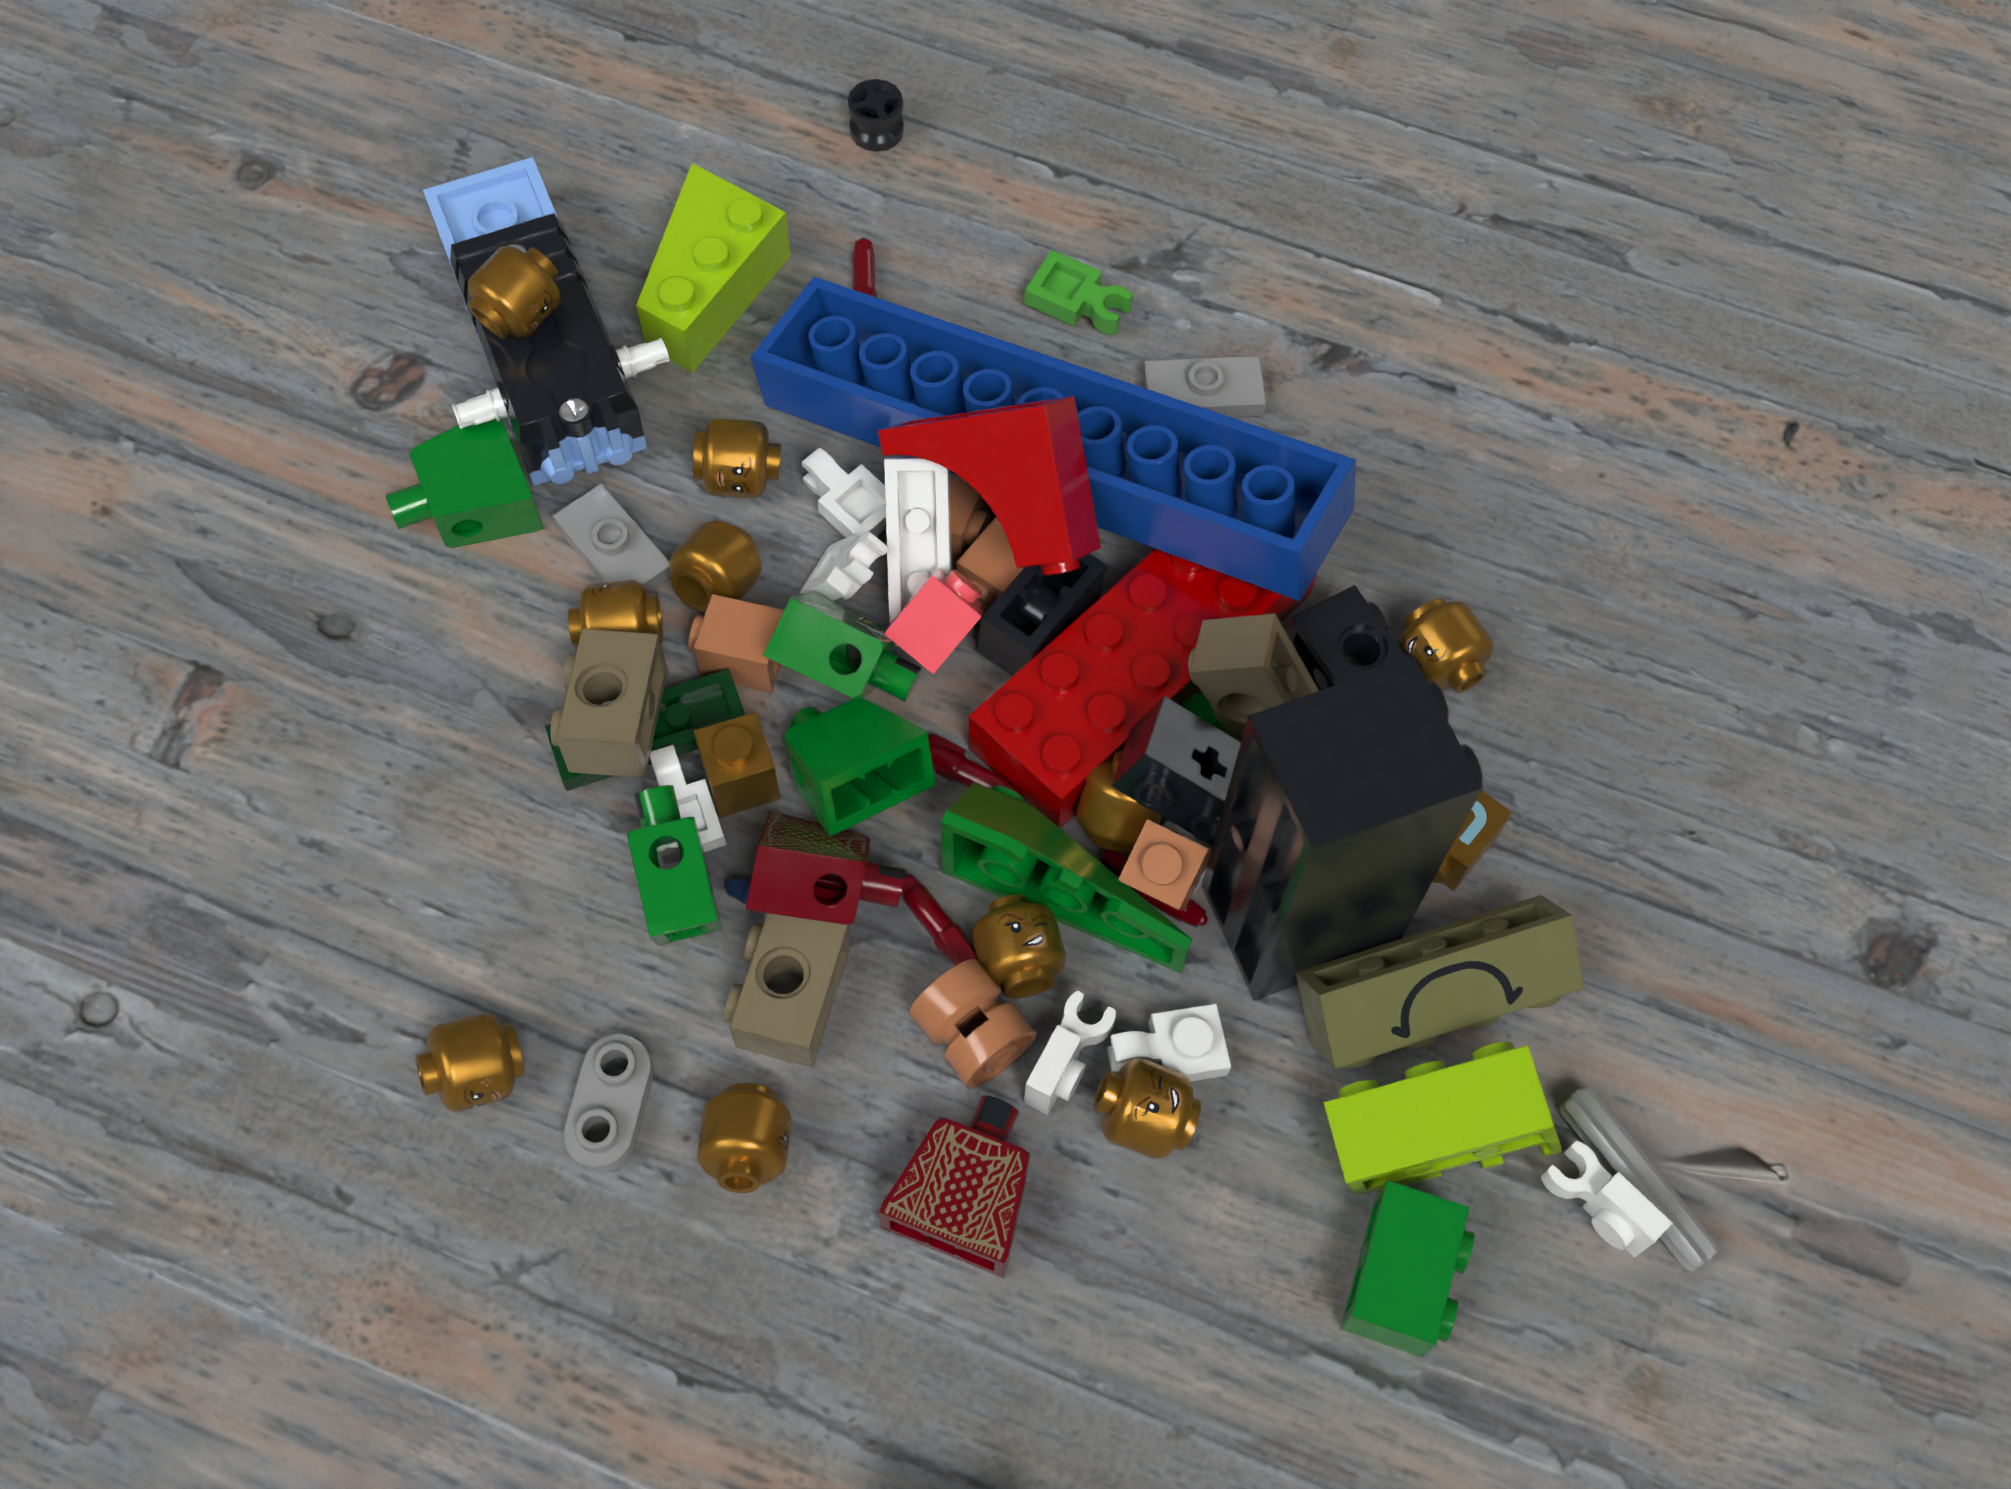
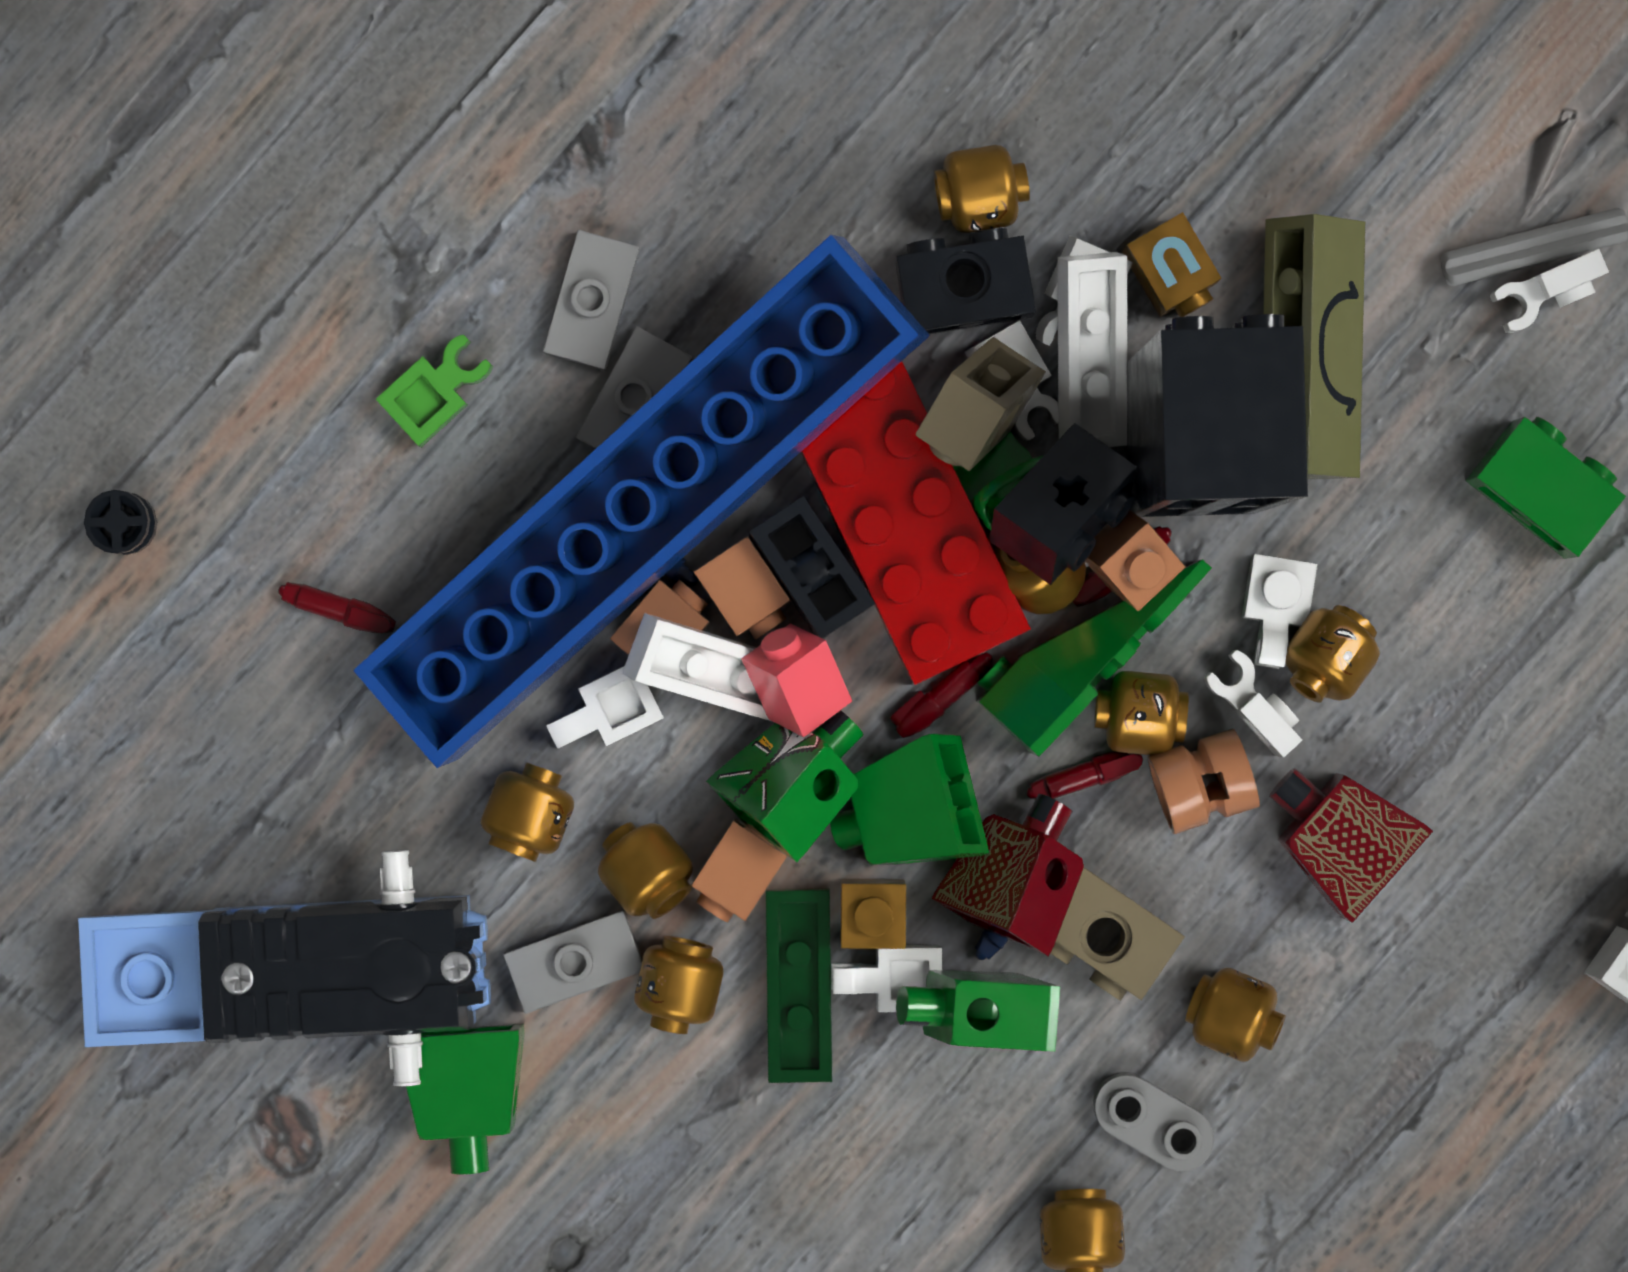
camera: 70 degrees left, 25 degrees up
(514, 292) = (314, 994): pearl gold head -> none
(615, 735) = (820, 1013): dark tan brick -> none
(709, 266) = (274, 768): lime wedge -> none
(845, 566) = (695, 746): white plate -> none
(1024, 466) = (698, 558): red arch -> none
(1441, 1119) = (1439, 400): lime wedge -> none

